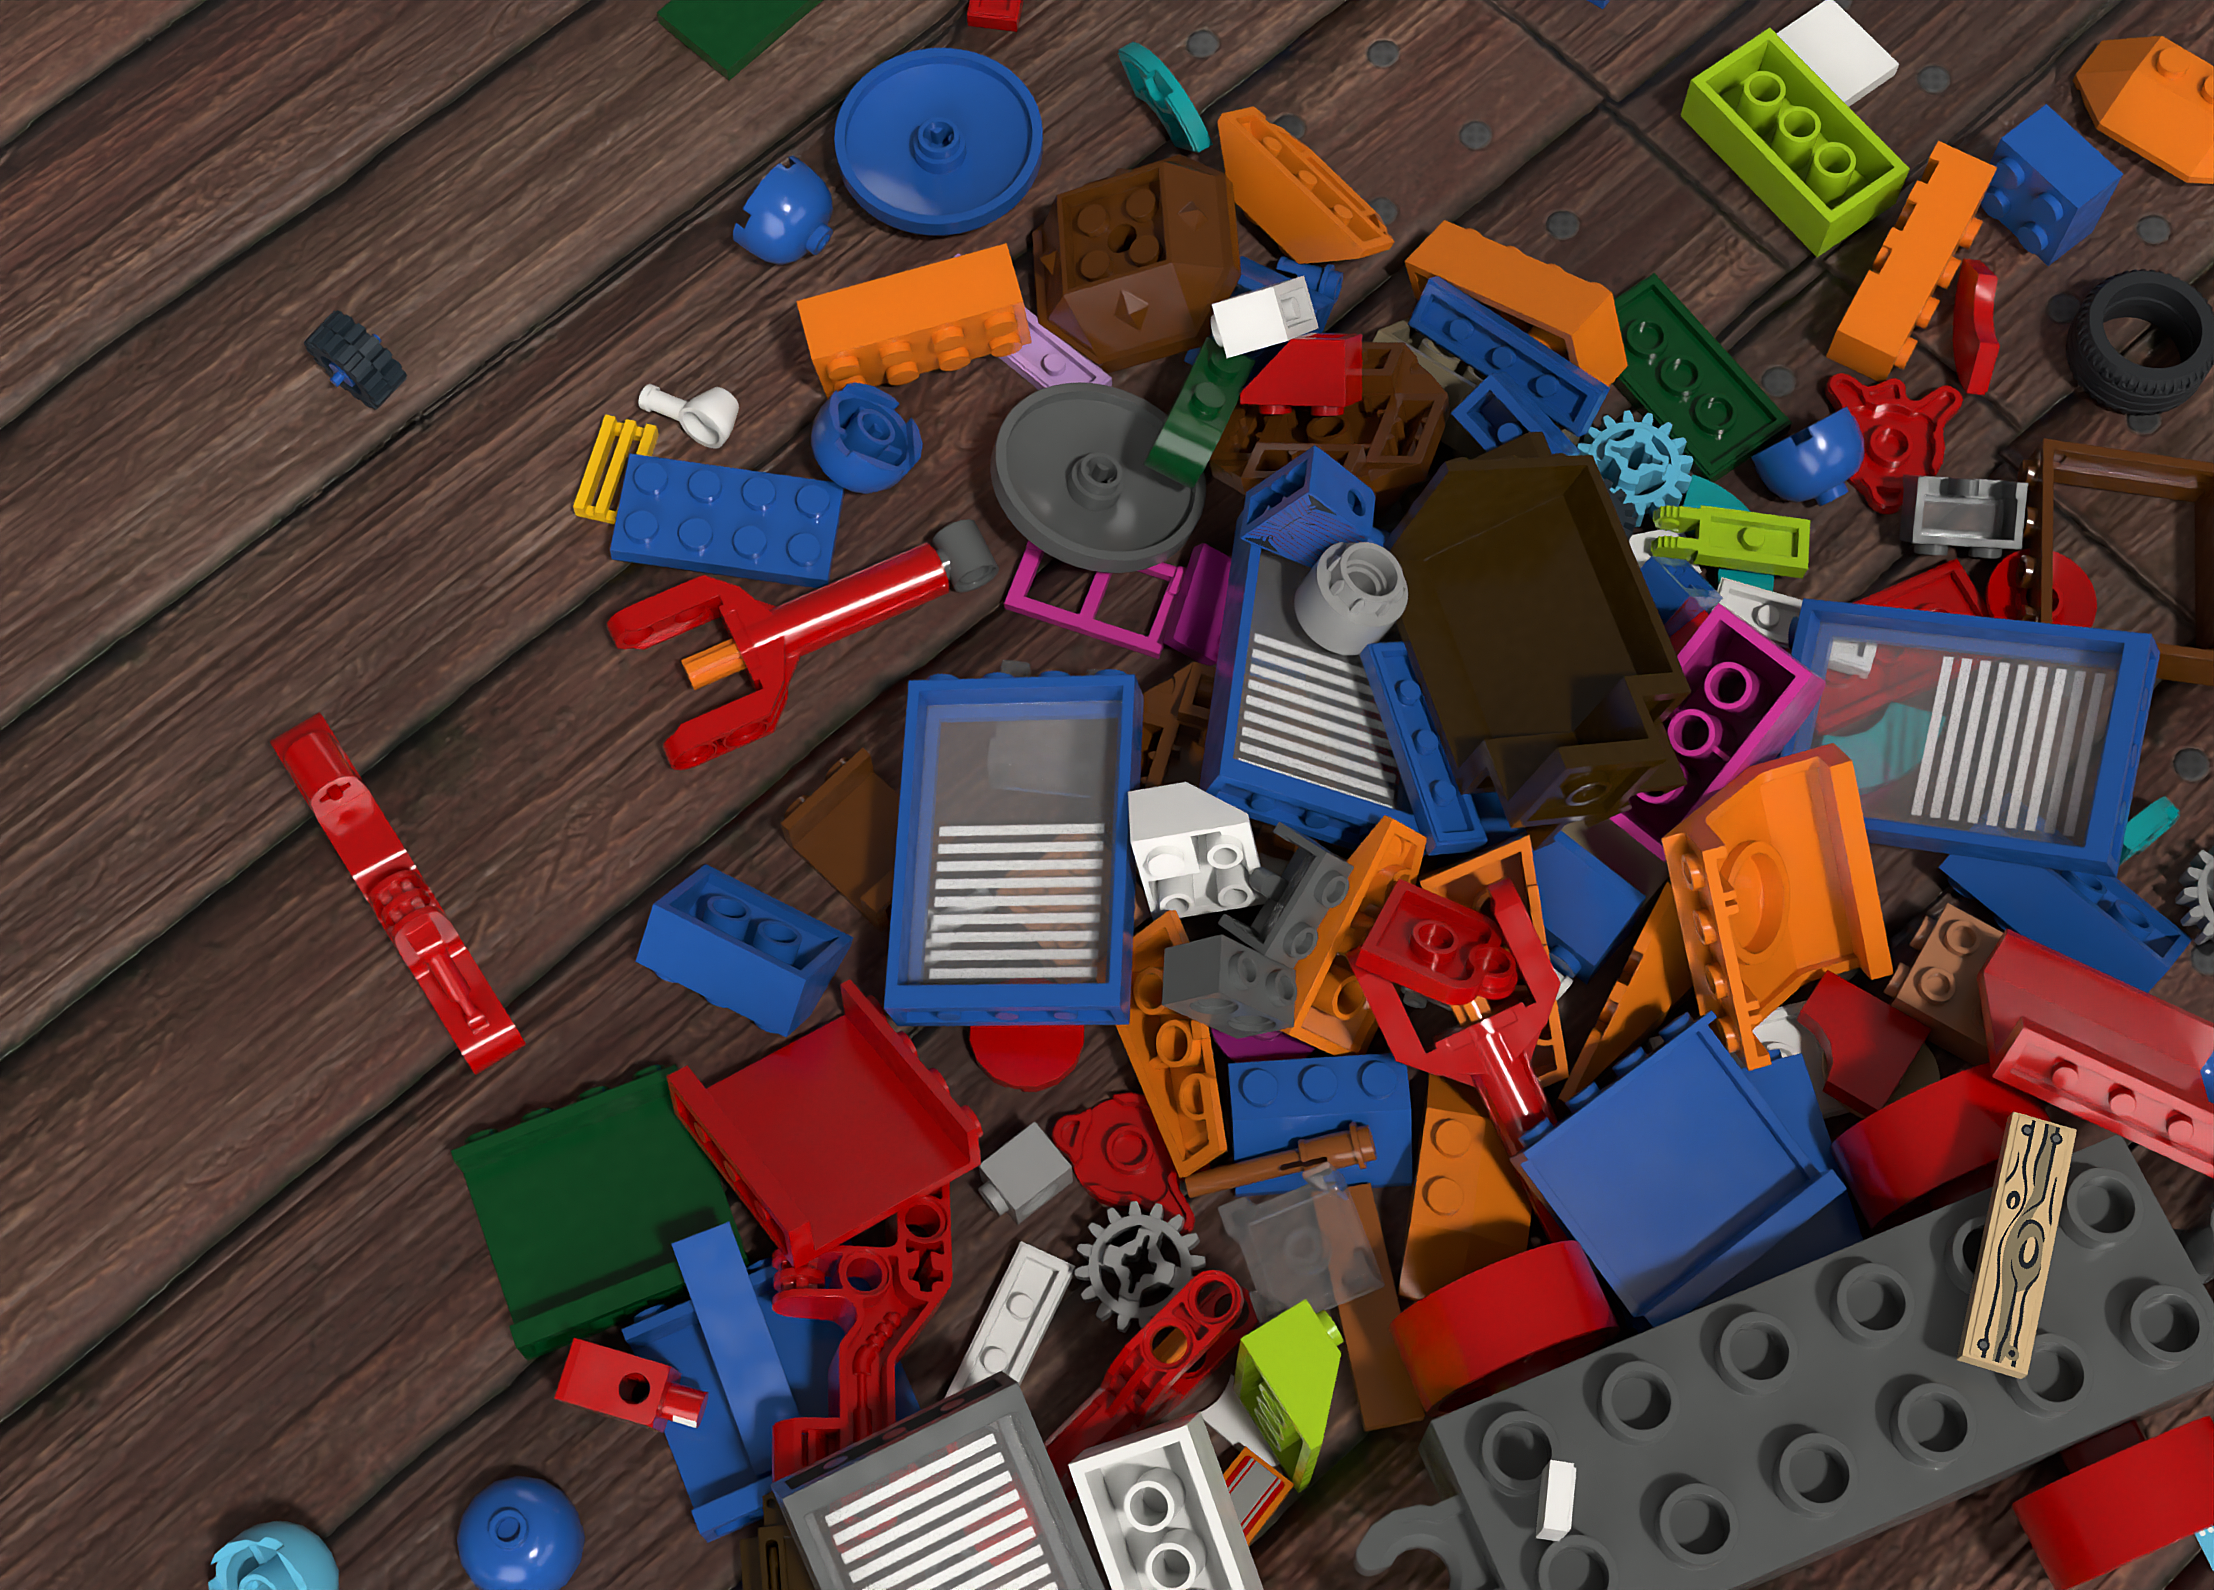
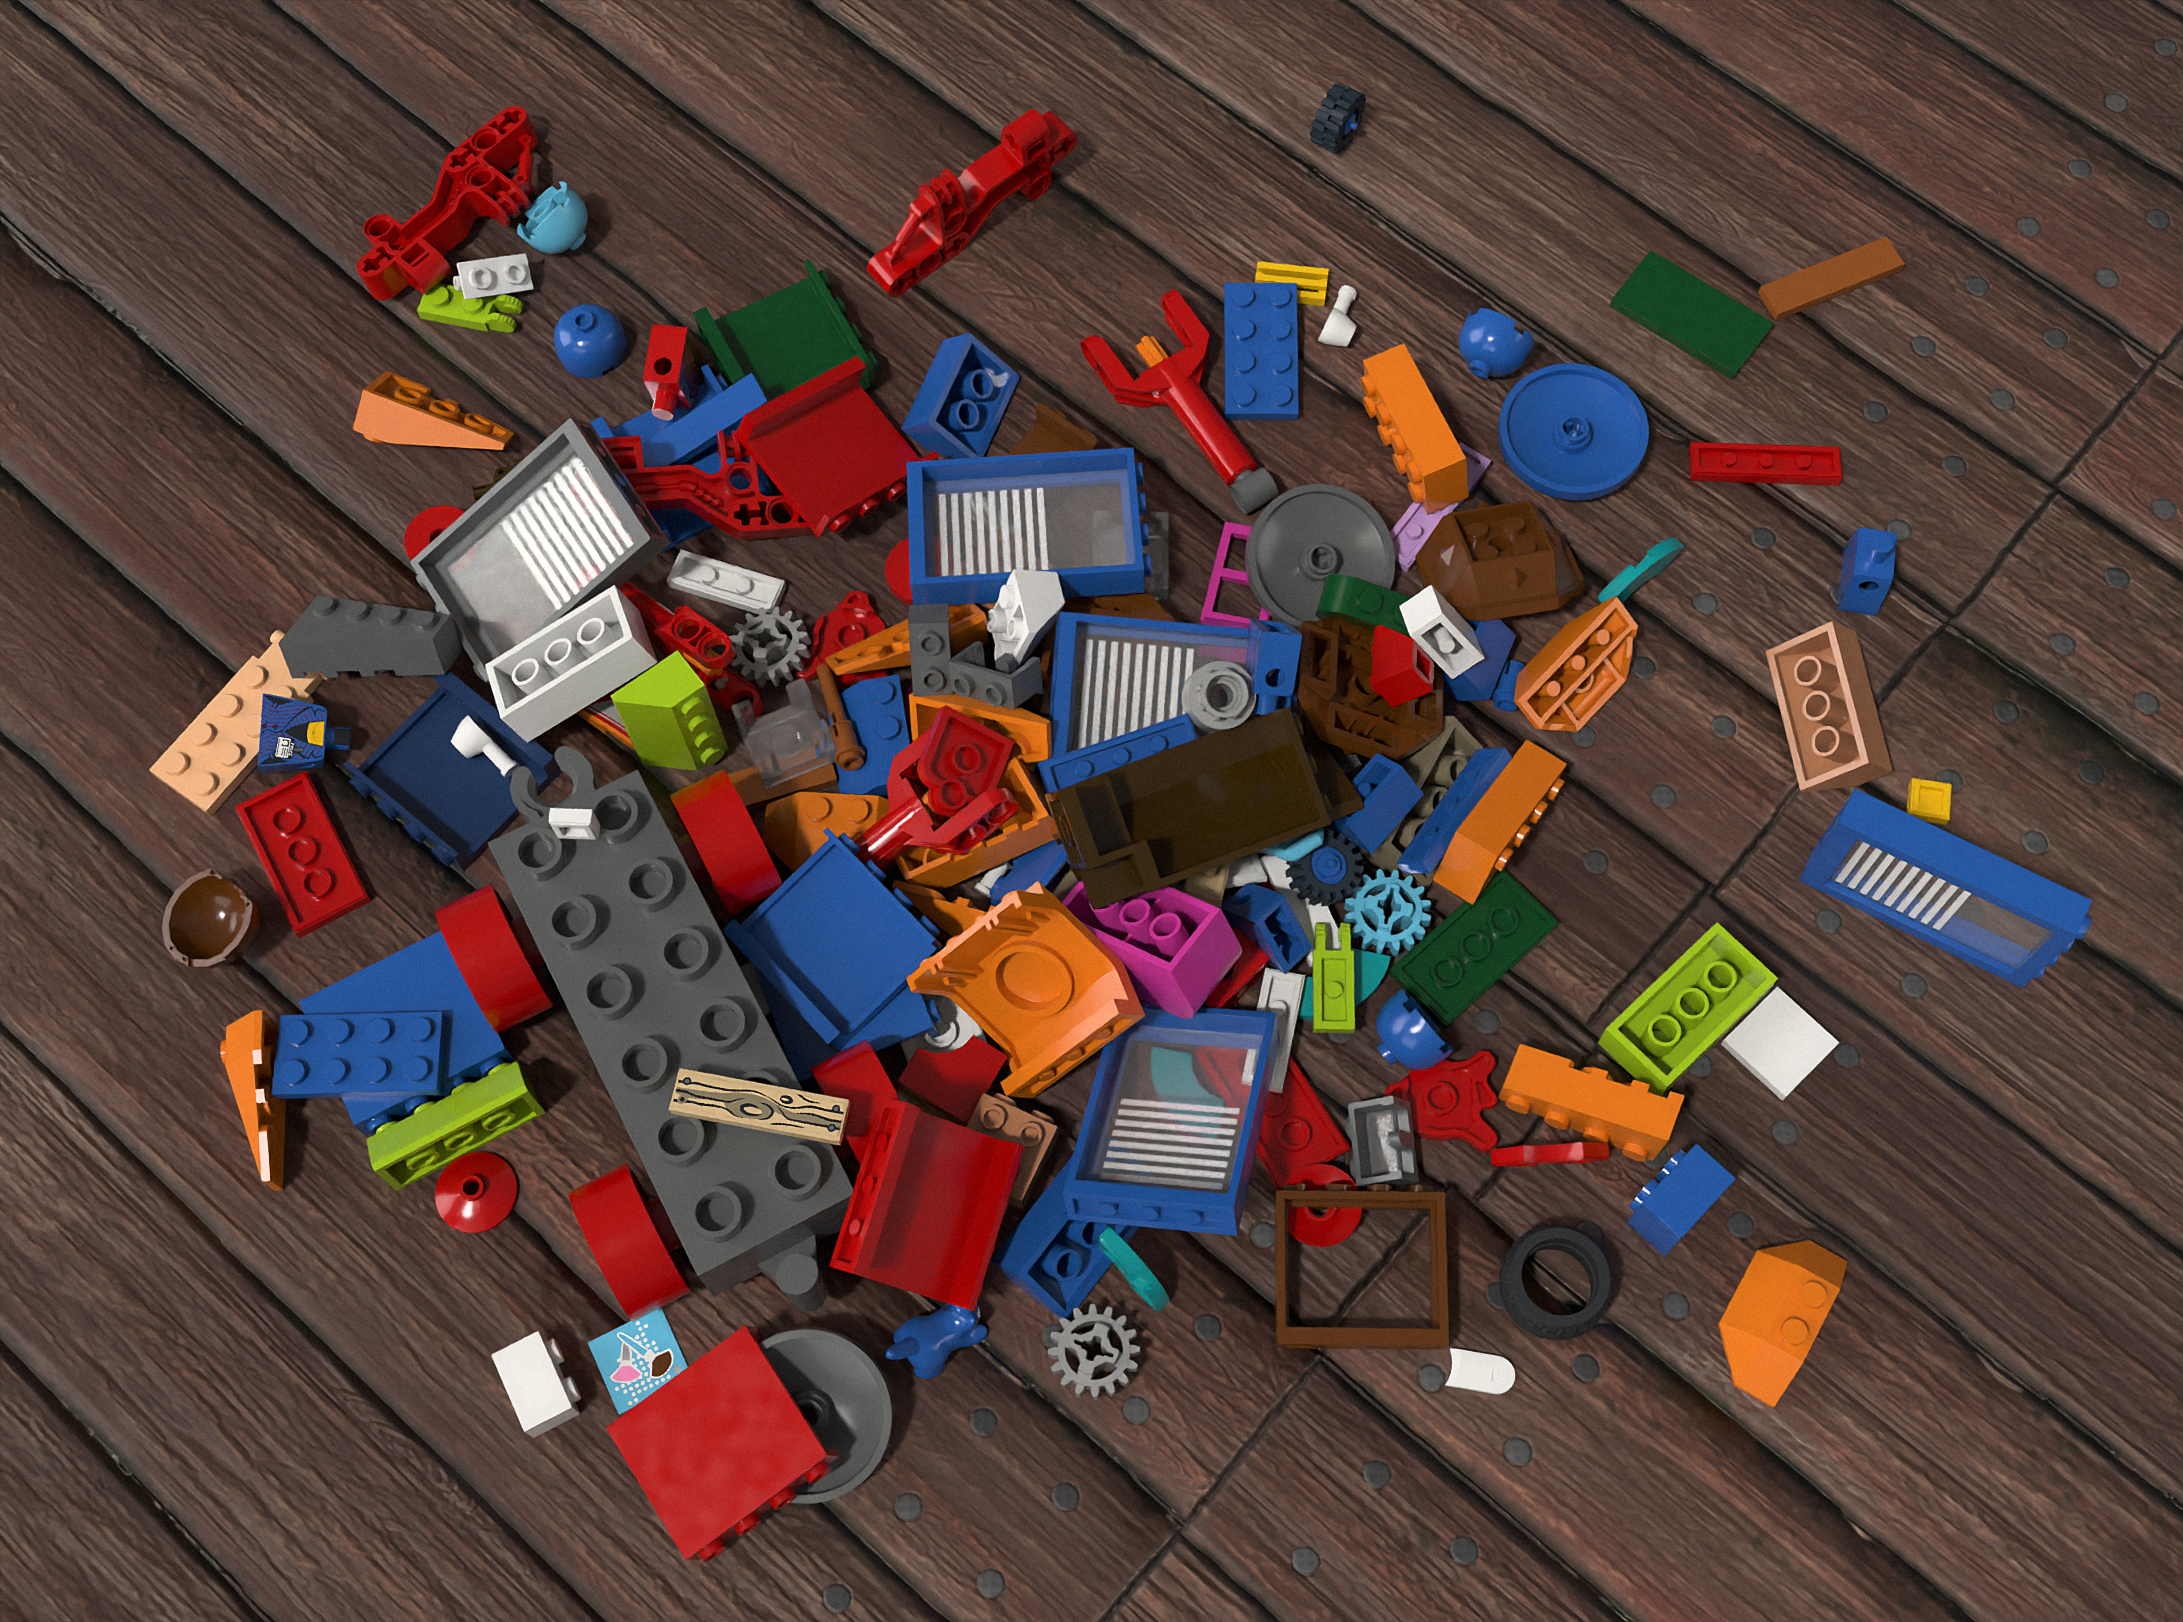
camera: 85 degrees right, 0 degrees up
(864, 439) = (1325, 414): blue cylinder -> none
(1024, 1174) = (825, 575): light grey brick -> none

